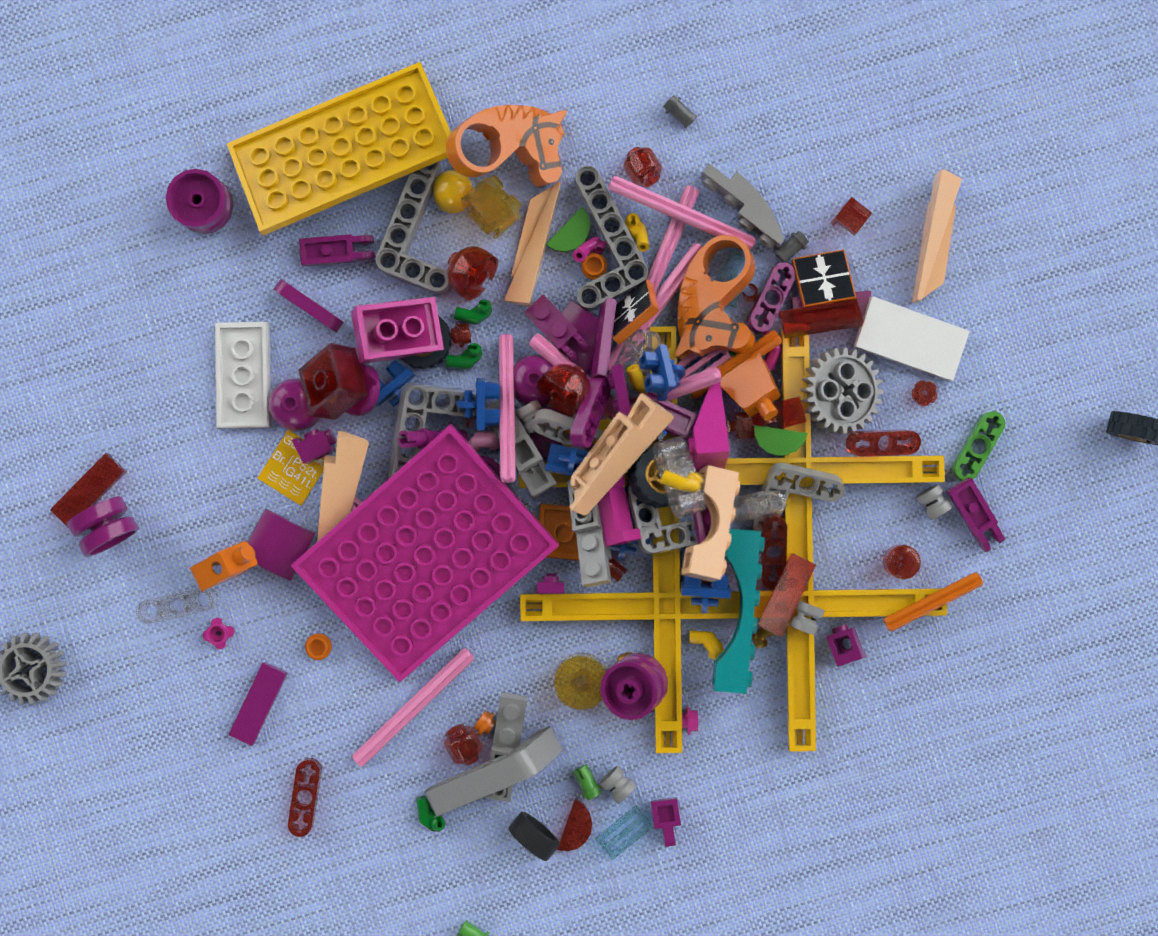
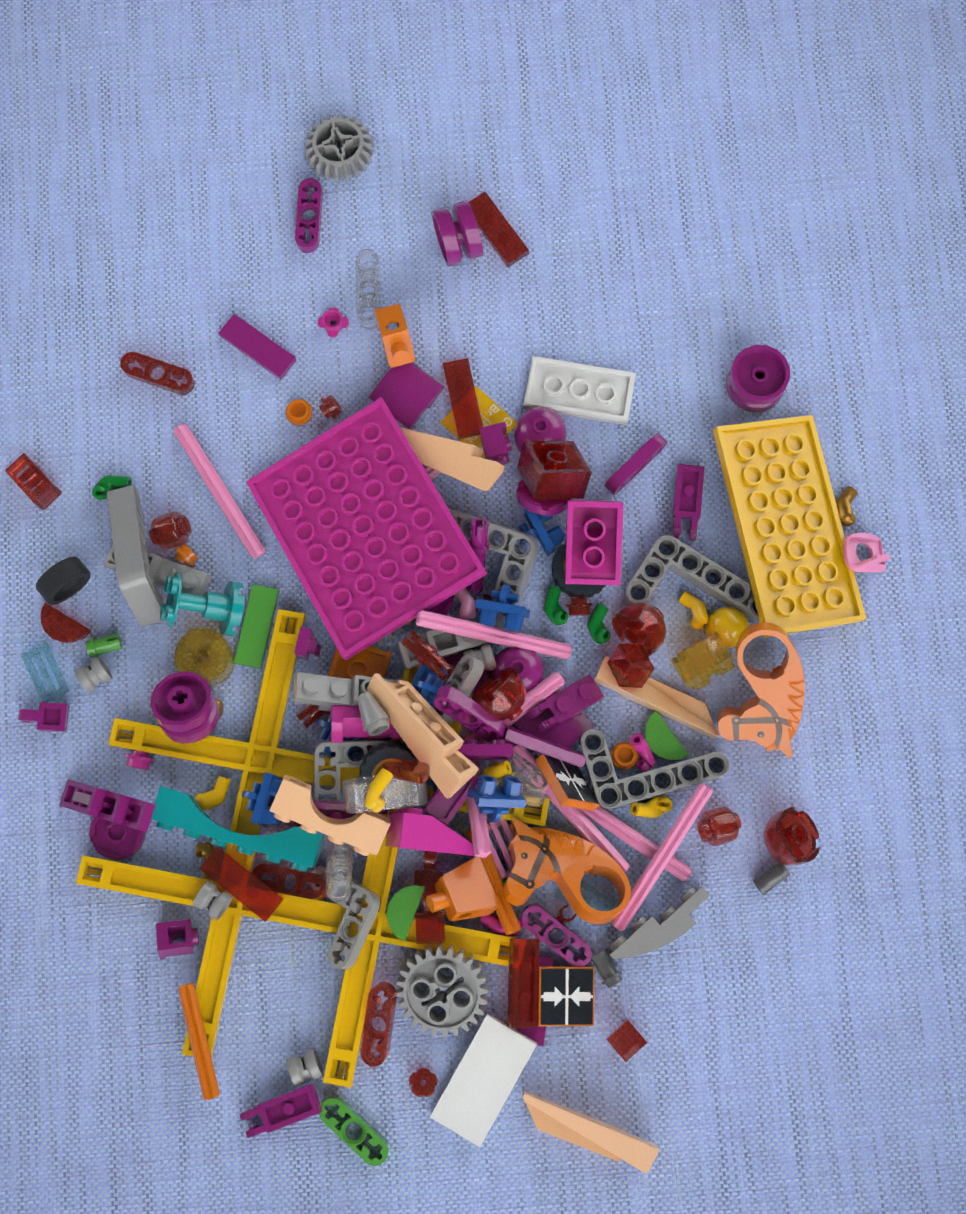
camera: 105 degrees right, 10 degrees down
(102, 692) = (304, 205): none -> magenta beam
(273, 487) = (463, 398): none -> clear red tile
(307, 616) = (330, 407): none -> clear red plate
(312, 99) = (844, 506): none -> pearl gold arm
(362, 59) = (873, 564): none -> bright pink piece
(440, 221) = (697, 608): none -> yellow arm
(448, 879) = (44, 493): none -> clear red slope
(510, 273) = (630, 665): none -> clear red brick
(530, 672) = (224, 607): none -> teal piece
(540, 639) = (256, 626): none -> bright green tile
(541, 464) = (427, 655): none -> clear red pin
(609, 503) = (372, 715): none -> light grey cone
(641, 98) = (791, 837): none -> clear red cylinder
(656, 456) = (409, 770): none -> clear red tile
(739, 738) = (107, 805): none -> magenta slope
(759, 725) = (114, 839): none -> magenta tile
(910, 561) = (240, 1022): clear red head -> none

